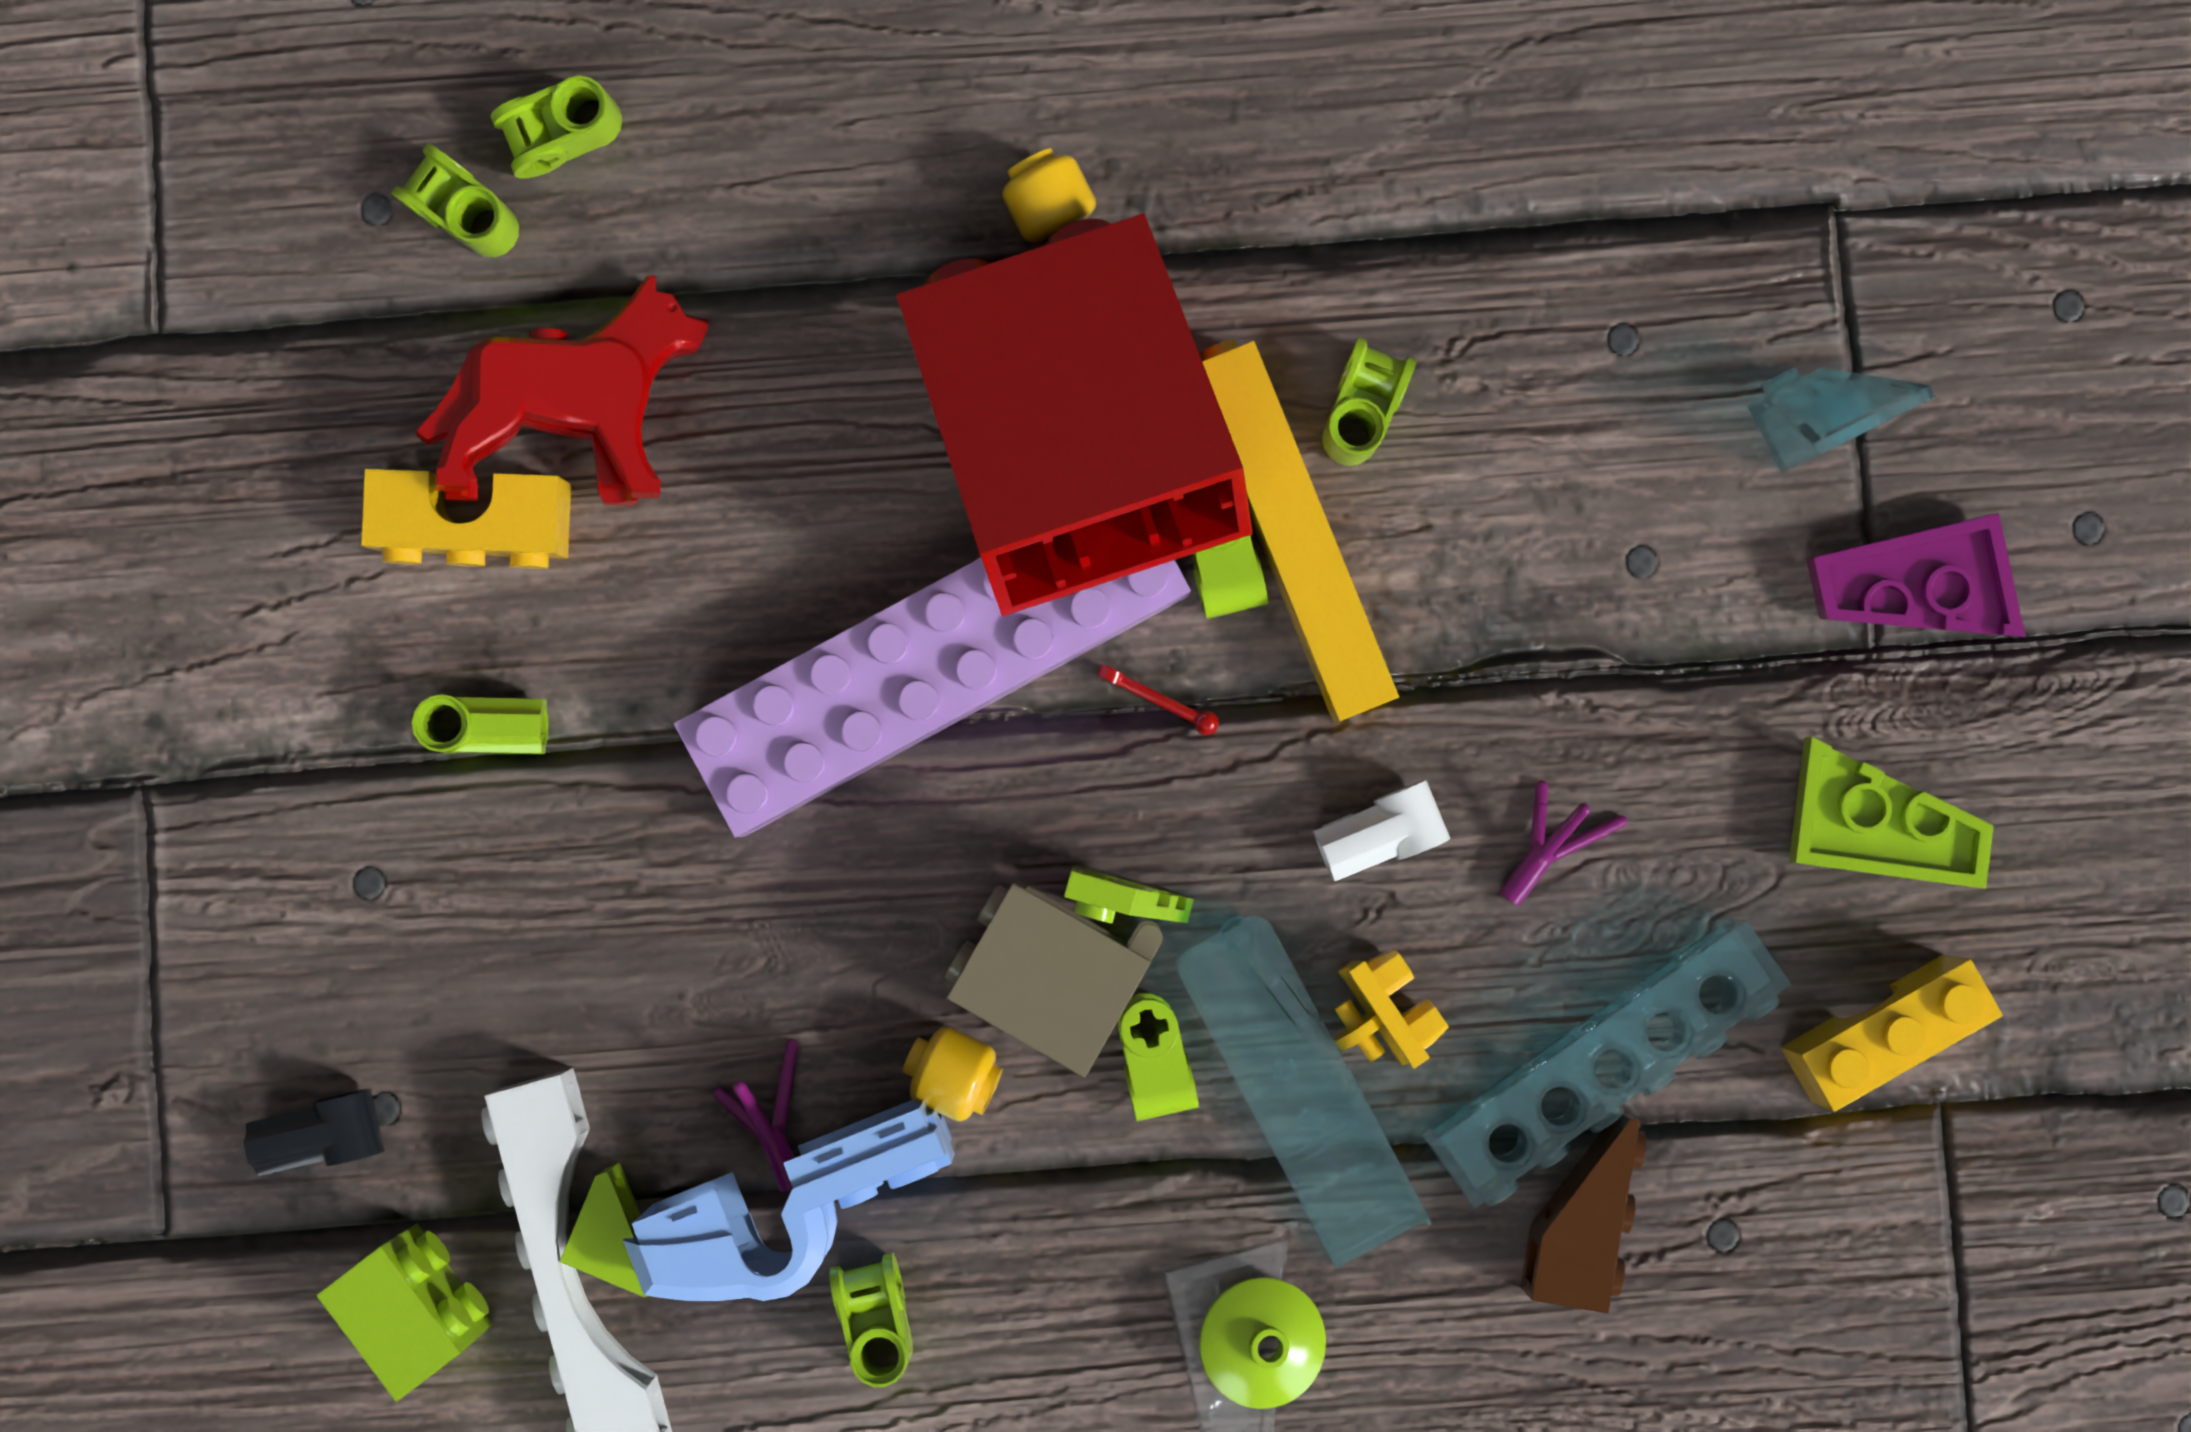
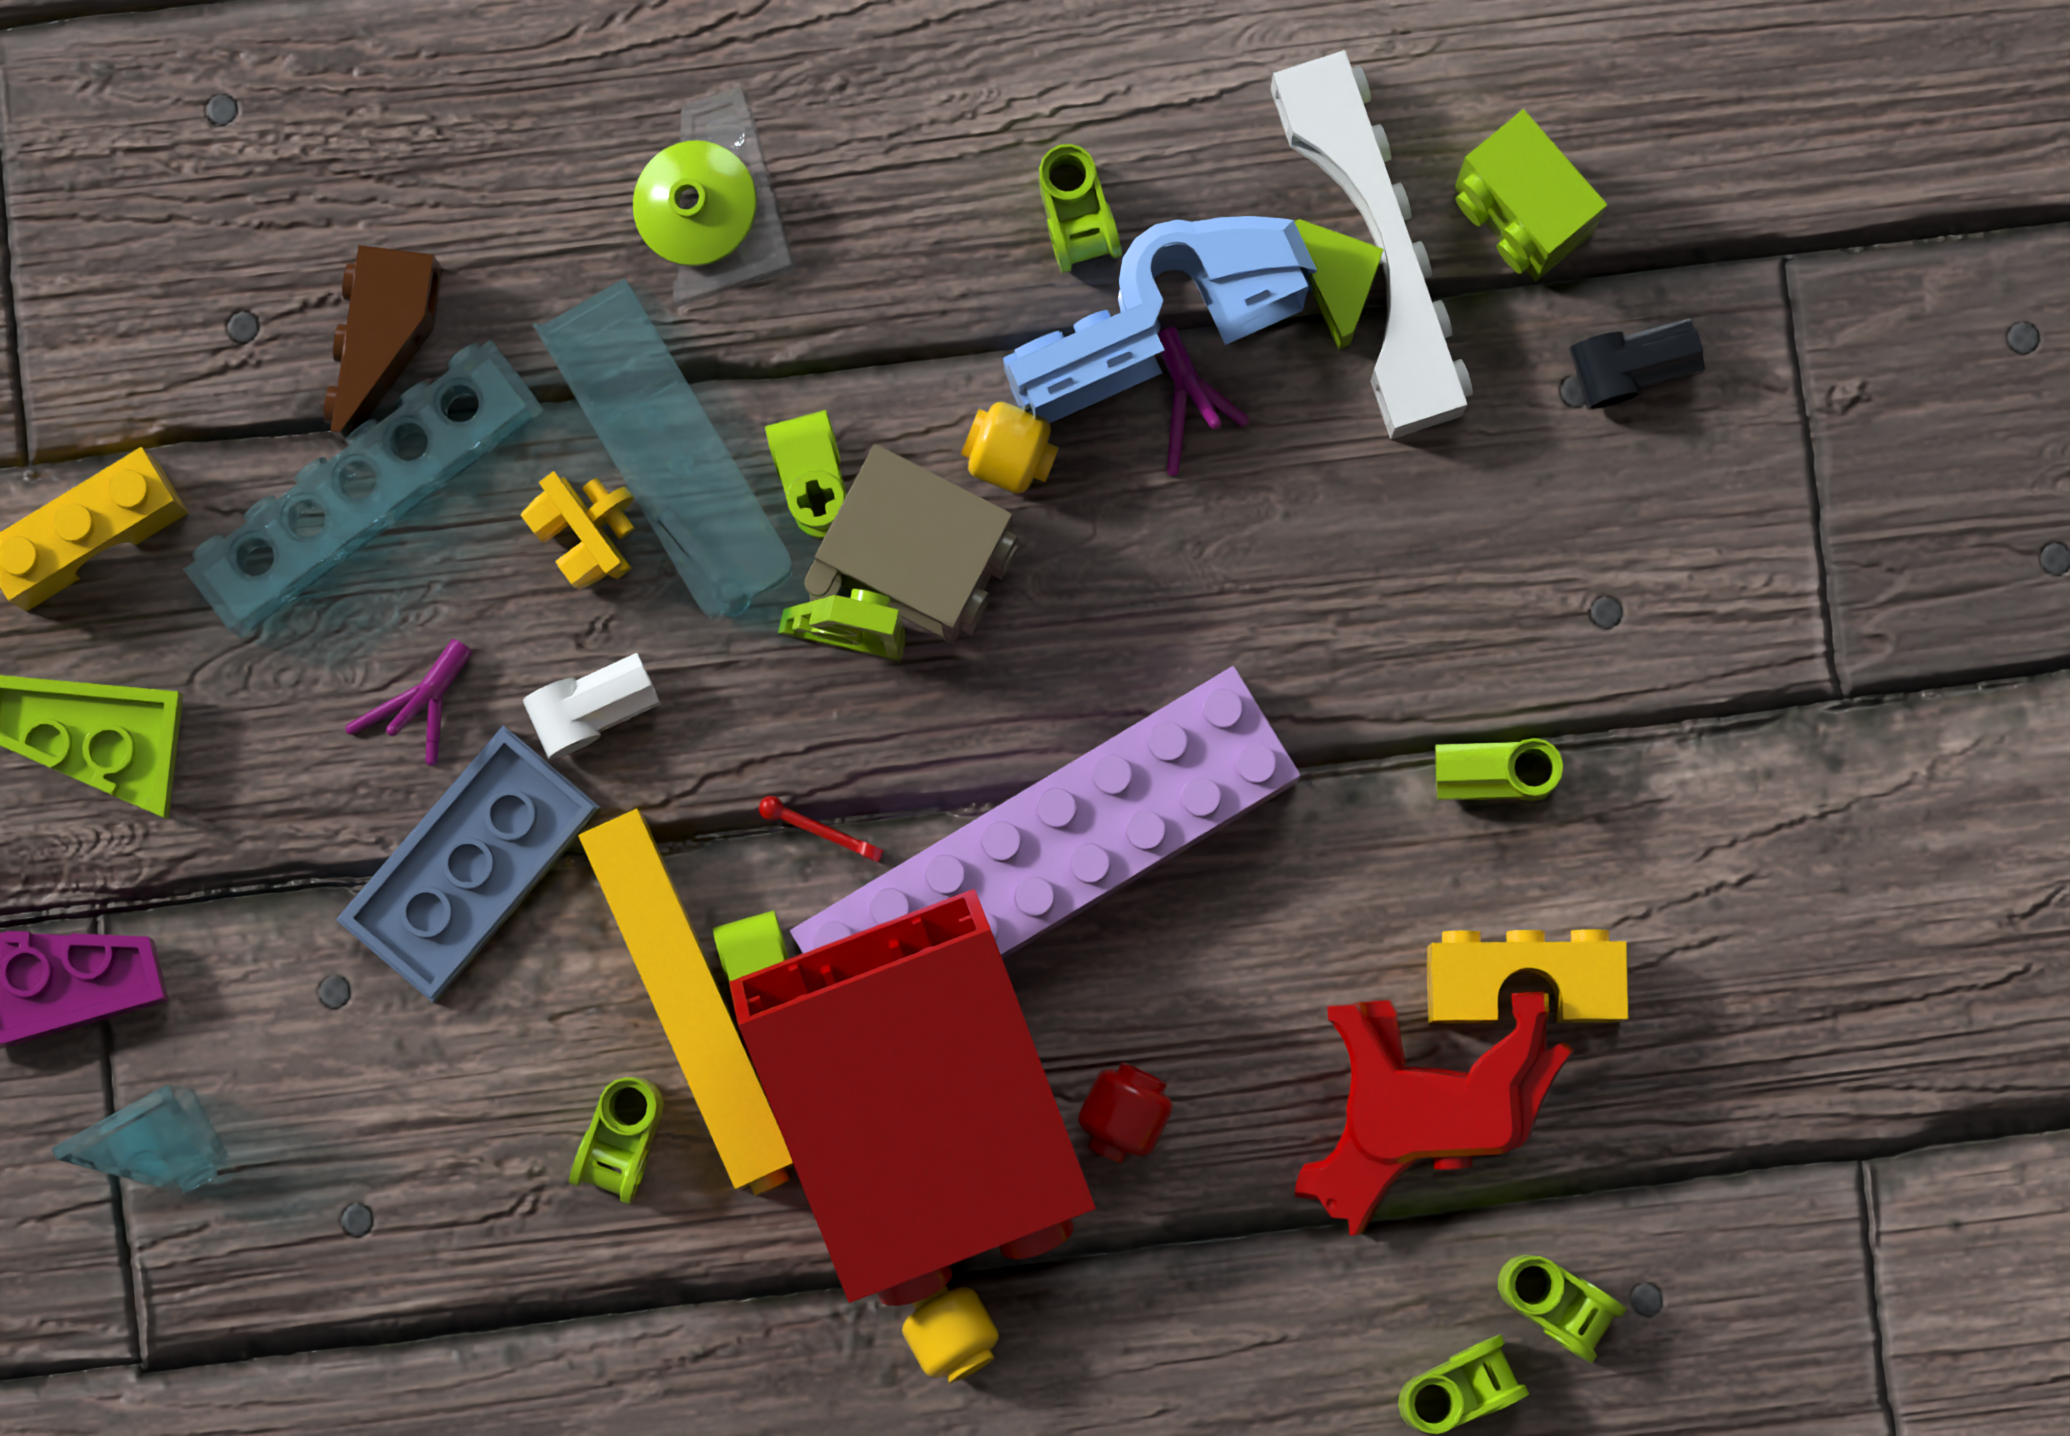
camera: 175 degrees left, 5 degrees down
(868, 403) = (1125, 1112): none -> red head
(1507, 680) = (468, 864): none -> sand blue tile

